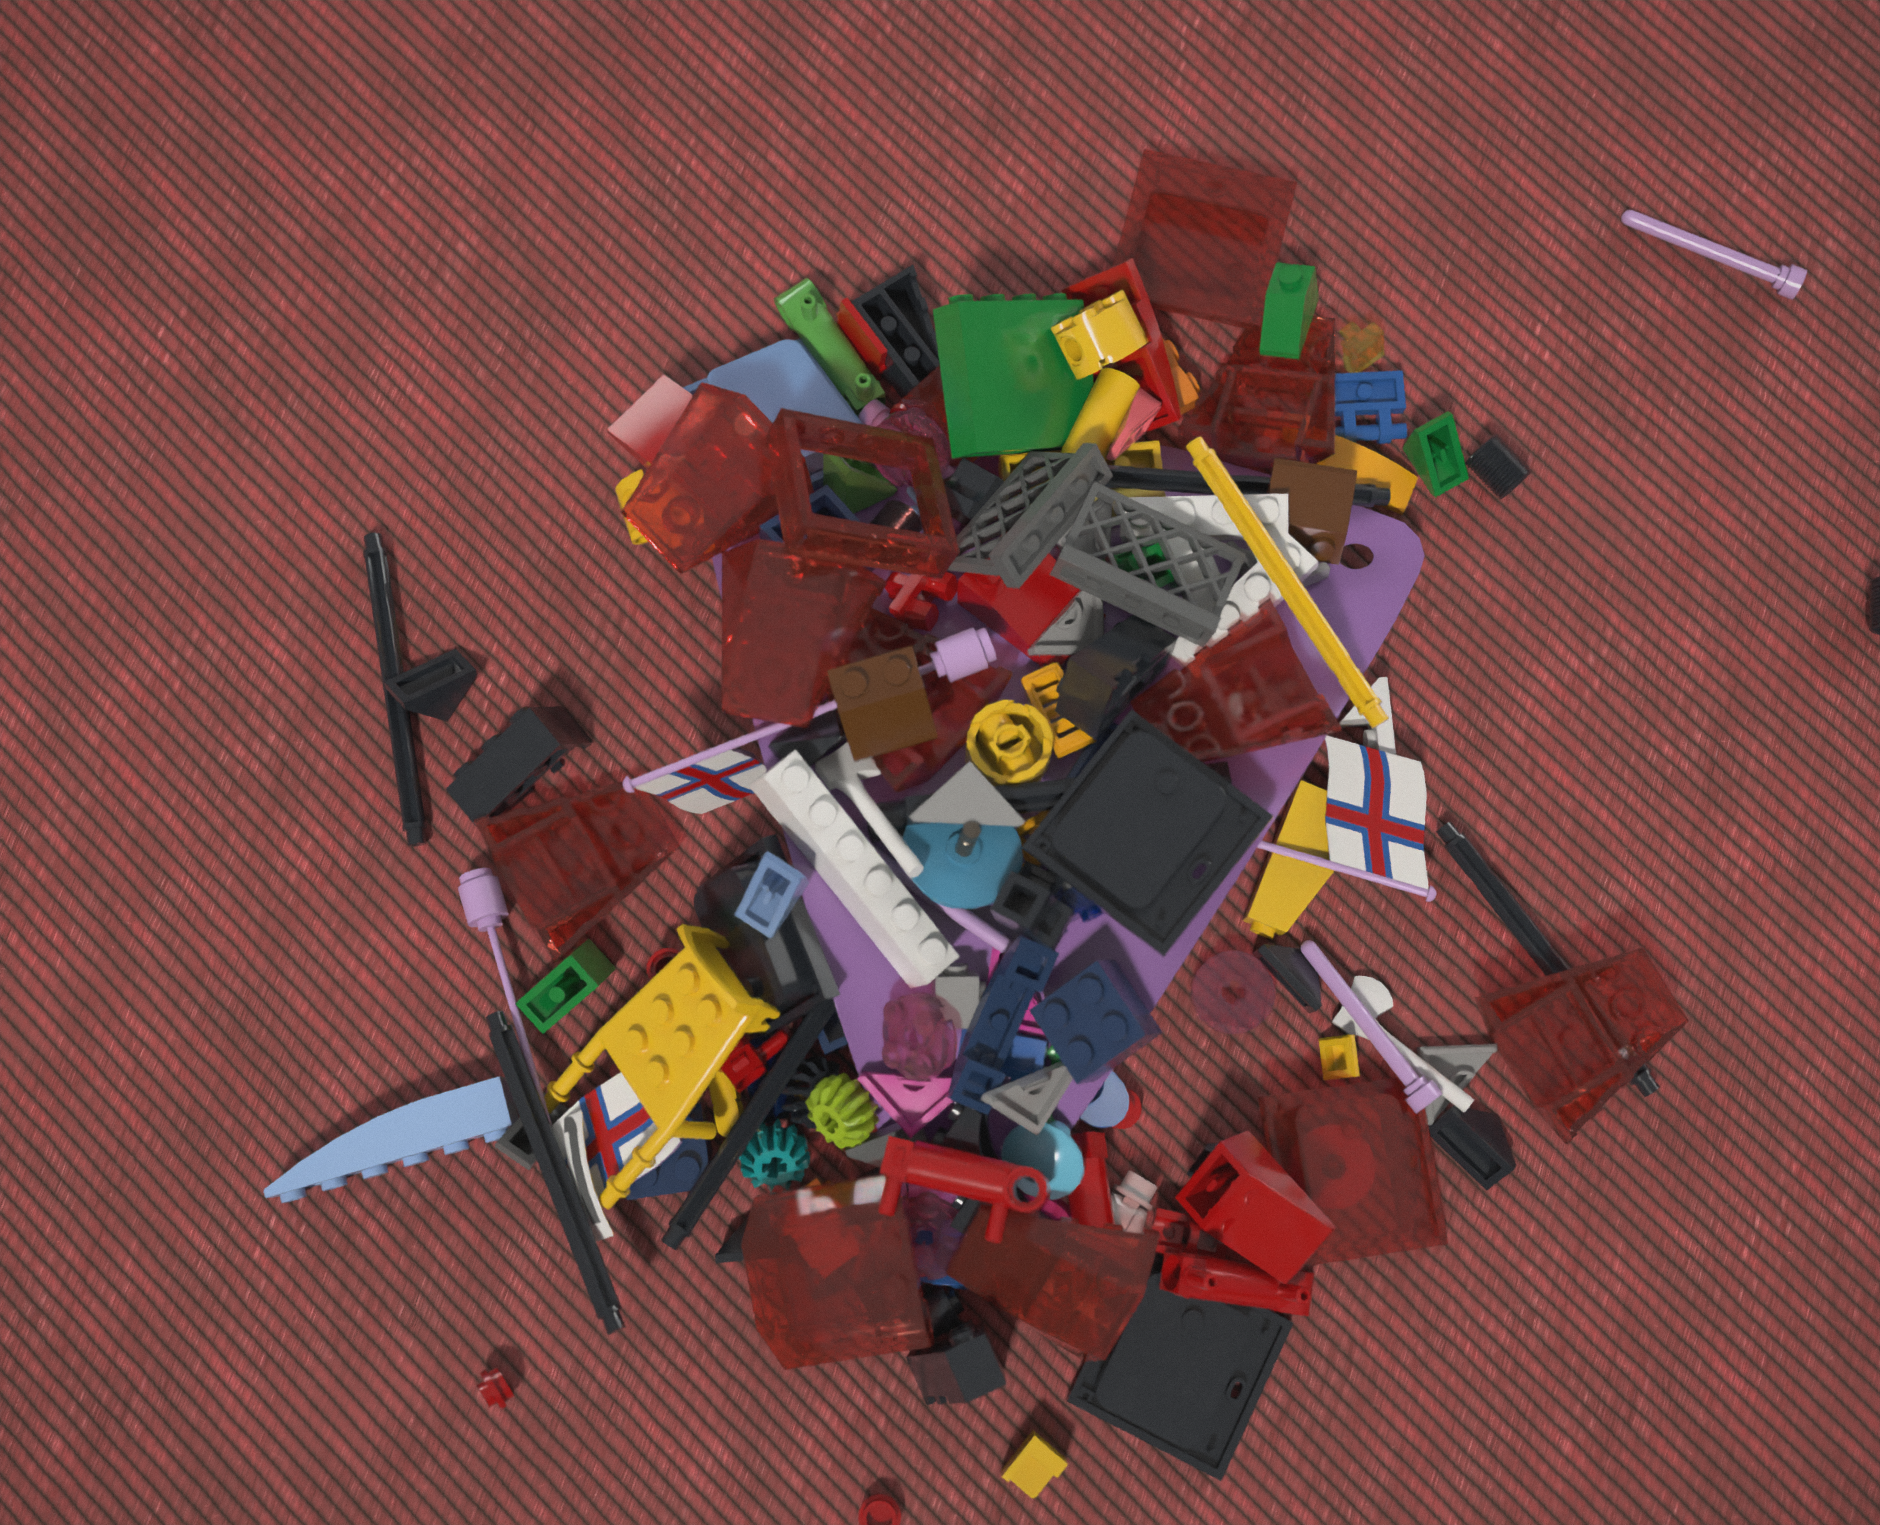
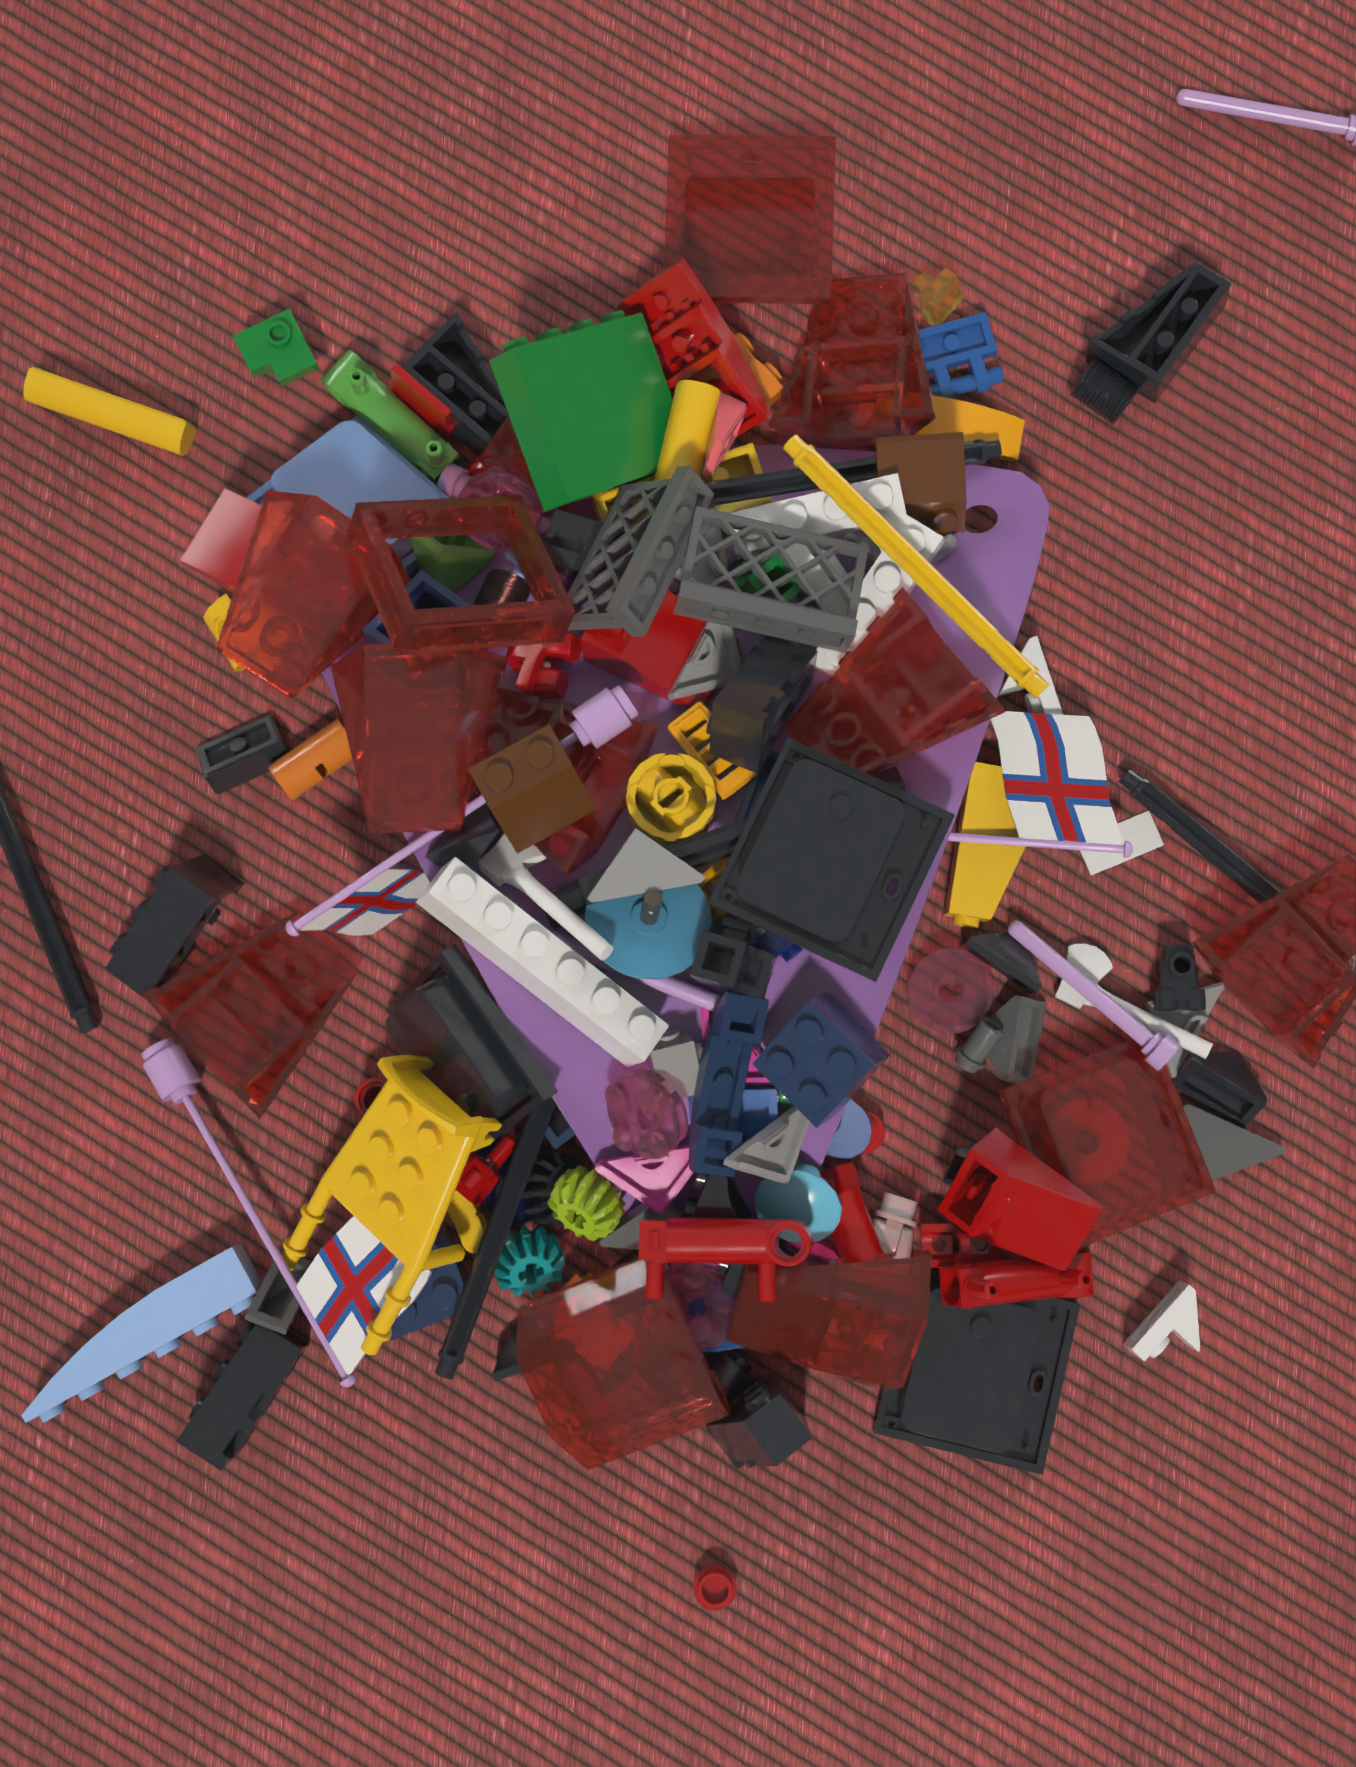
camera: 15 degrees left, 5 degrees up
(434, 686) = (66, 864): black slope -> none
(474, 1218) = (241, 1394): none -> black wedge
(494, 1388) = (303, 1554): red plate -> none
(555, 1173) = (312, 1330): black piece -> none
(565, 986) = (277, 1139): green slope -> none
(575, 286) = (108, 411): none -> yellow brick
(581, 1176) = (340, 1329): sticker -> none
(621, 623) = (241, 754): none -> black slope
(684, 641) = (312, 760): none -> orange pin
(741, 262) = (276, 348): none -> green brick
(771, 895) = (464, 1010): medium blue slope -> none
(1034, 1465) = (855, 1502): yellow panel -> none
(1099, 335) = (668, 347): yellow brick -> none
(1249, 1050) = (979, 1044): none -> dark grey pin
(1284, 1051) = (1017, 1050): none -> dark grey slope
(1288, 310) = (855, 275): green slope -> none
(1339, 1057) = (1069, 1031): yellow slope -> none
(1383, 1353) = (1173, 1313): none -> white slope
(1437, 454) = (1040, 392): green slope -> none
(1448, 889) = (1138, 831): none -> white sticker
(1451, 1040) = (1178, 989): none -> black plate
(1467, 1202) = (1228, 1146): none -> dark grey tile
(1564, 425) = (1162, 333): none -> black wedge

